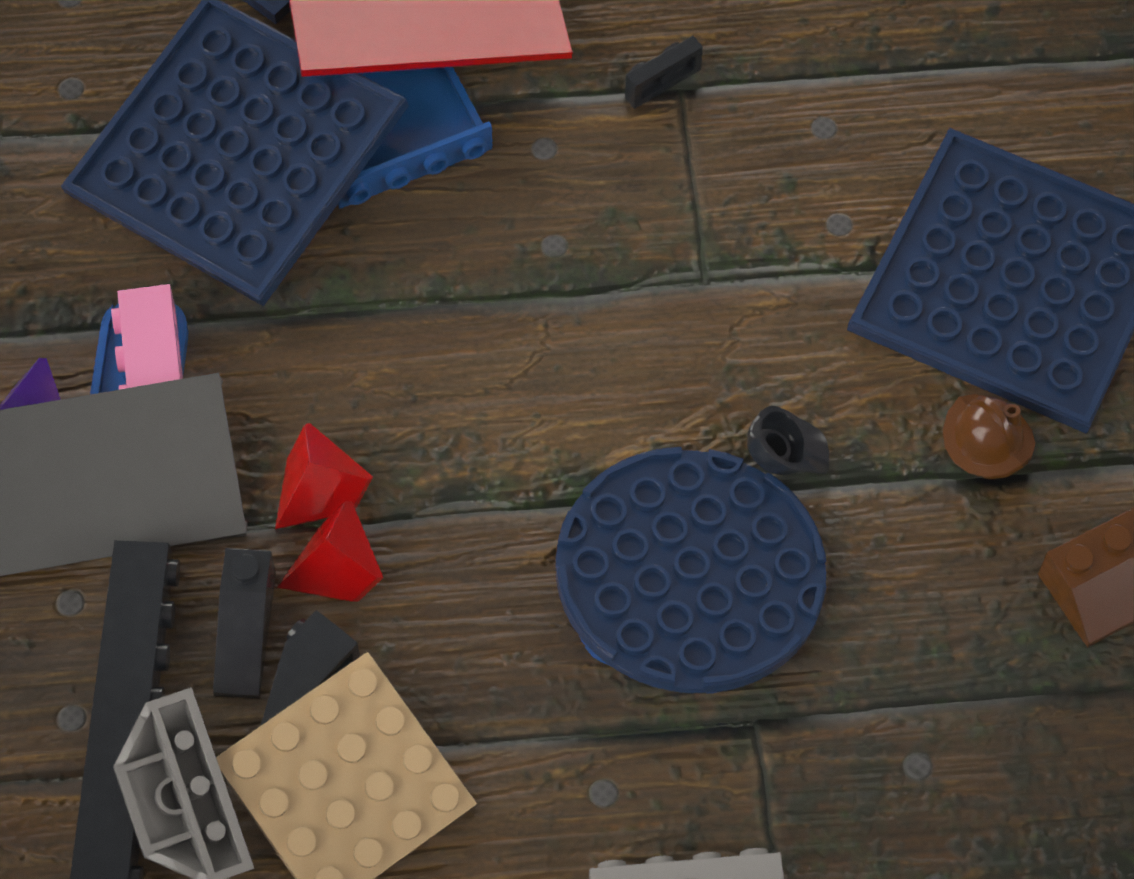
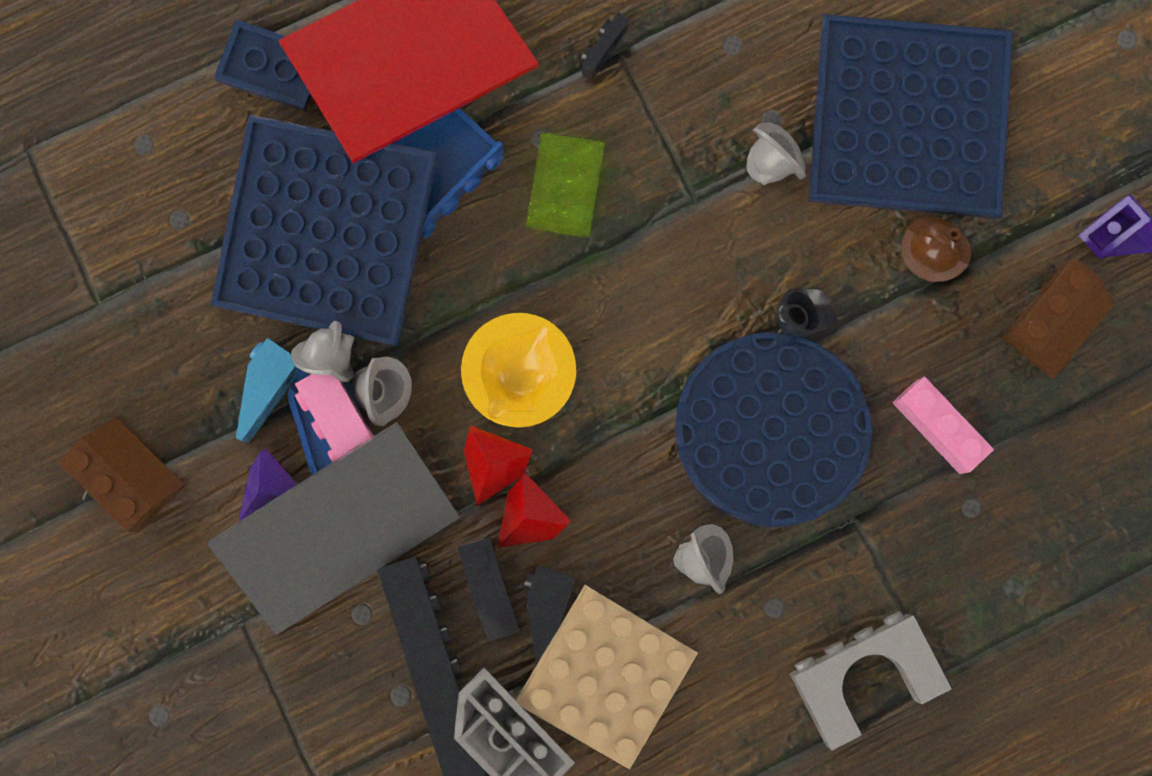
camera: 20 degrees left, 20 degrees up
(78, 295) = (266, 382): none -> dark azure slope
(177, 271) = (326, 353): none -> light grey helmet
(223, 342) = (382, 389): none -> light grey helmet
(397, 380) = (518, 370): none -> yellow piece
(539, 685) = (706, 557): none -> light grey helmet
(550, 206) = (565, 185): none -> clear neon green plate
(822, 257) = (774, 155): none -> light grey helmet
(913, 641) = (943, 426): none -> bright pink brick

